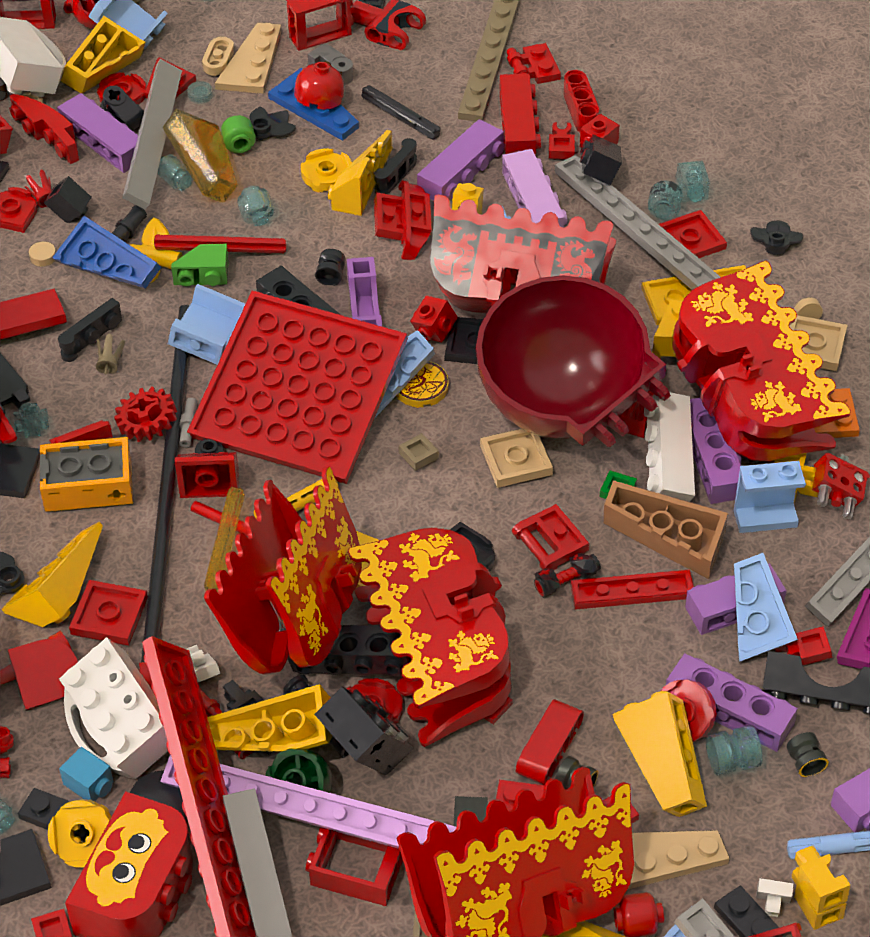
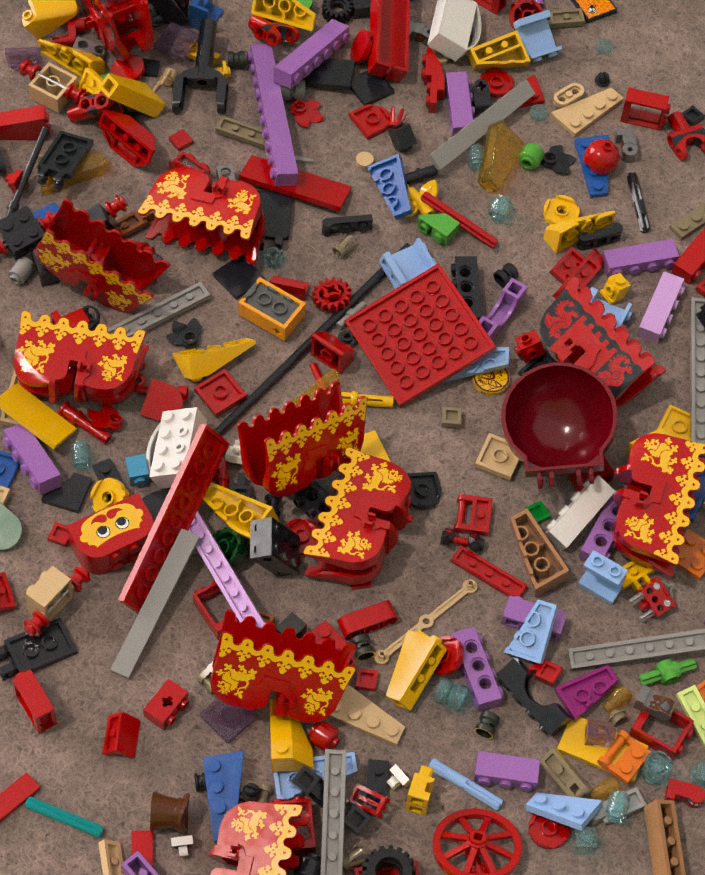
camera: 35 degrees right, 10 degrees up
(239, 21) = (602, 79): none -> black piece
(625, 621) = (469, 587): none -> tan piece

